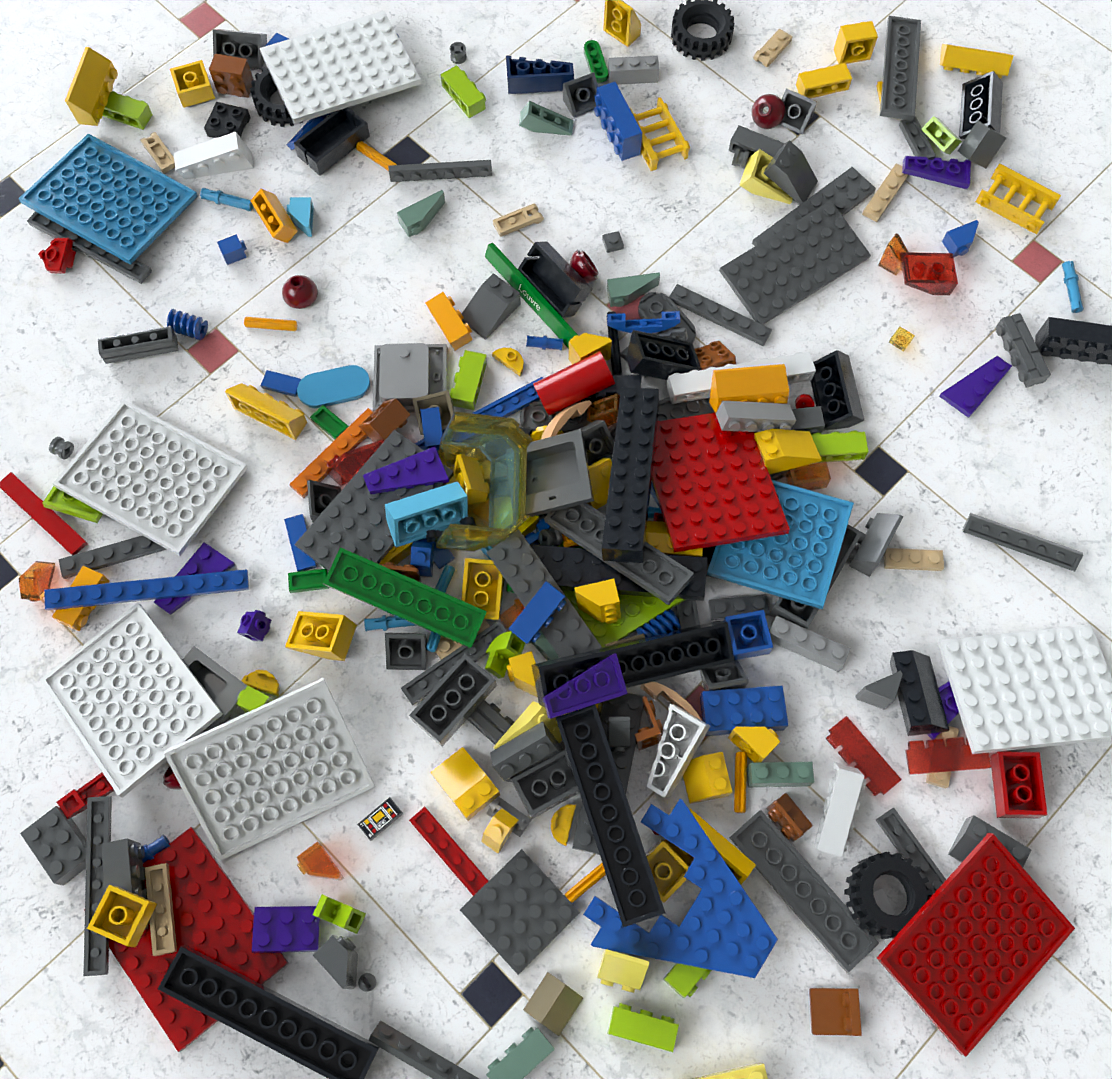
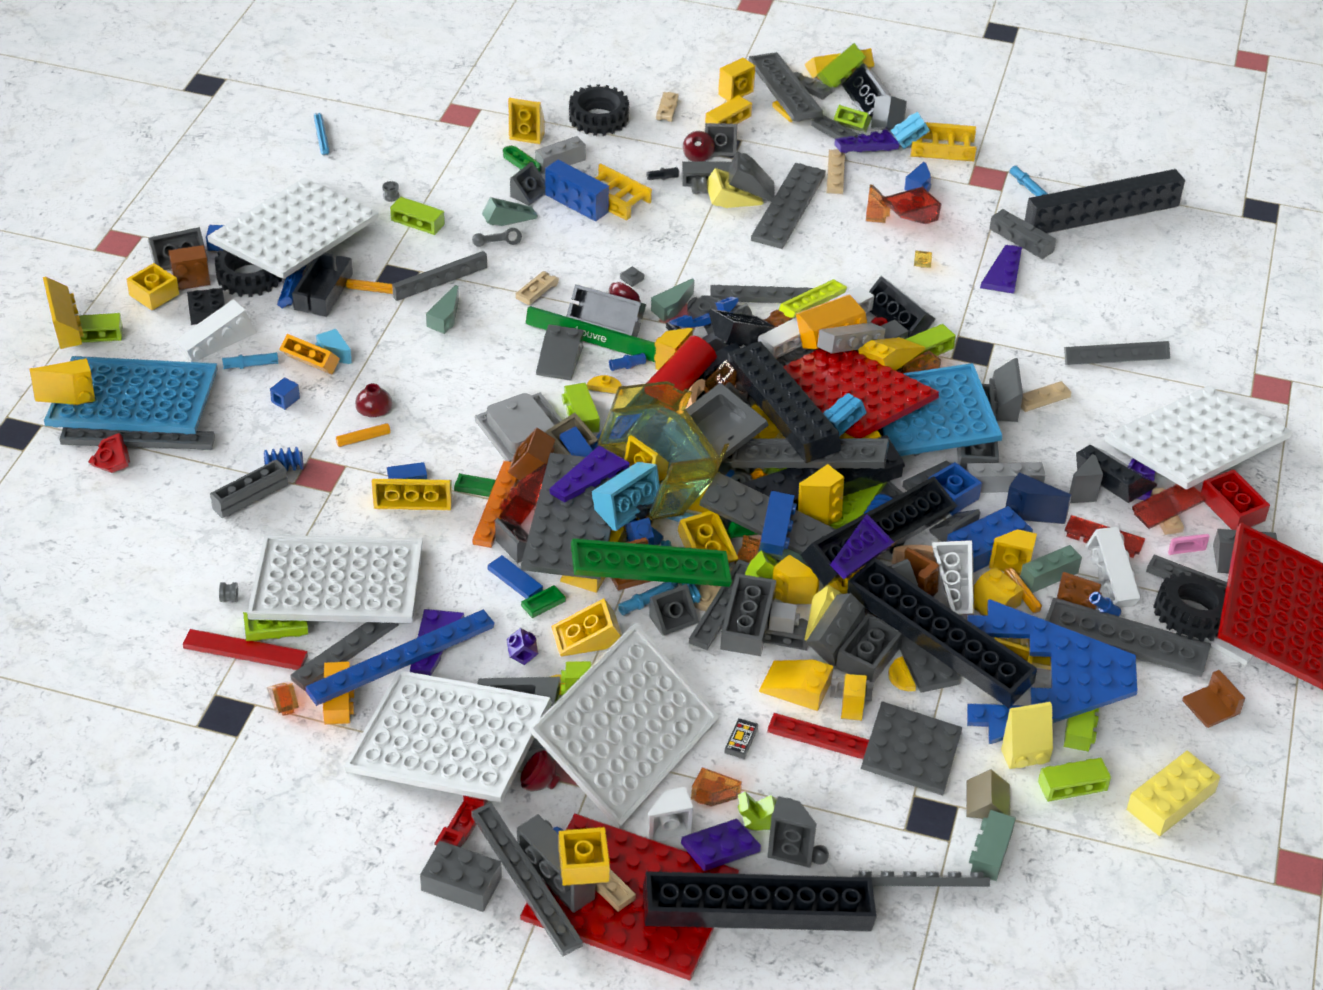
camera: 30 degrees left, 25 degrees down
(48, 168) = (63, 383): none -> yellow slope
(159, 152) = (154, 348): tan plate -> none
(260, 878) = (671, 815): none -> white slope
(333, 386) = (458, 458): dark azure tile -> none
(449, 320) = (531, 374): light orange brick -> none
(486, 716) = (783, 617): none -> light grey brick
(501, 142) = (480, 239): none -> dark grey piece
(537, 75) = (478, 183): dark blue wedge -> none
(586, 883) = (954, 700): light orange axle -> none
(670, 522) = (845, 412): none -> dark azure brick
(716, 130) = (663, 173): none -> black axle
(755, 347) = (812, 298): none -> neon yellow plate
(794, 263) = (798, 238): dark grey plate -> none
(801, 847) = (1104, 604): none -> blue pin
(813, 689) = (1037, 500): none -> dark blue slope
(931, 76) = (814, 87): none -> dark grey hinge
(939, 806) = (1188, 544): none -> bright pink slope
(970, 66) = (841, 66): none -> lime brick
(989, 174) = (910, 130): none -> medium azure brick

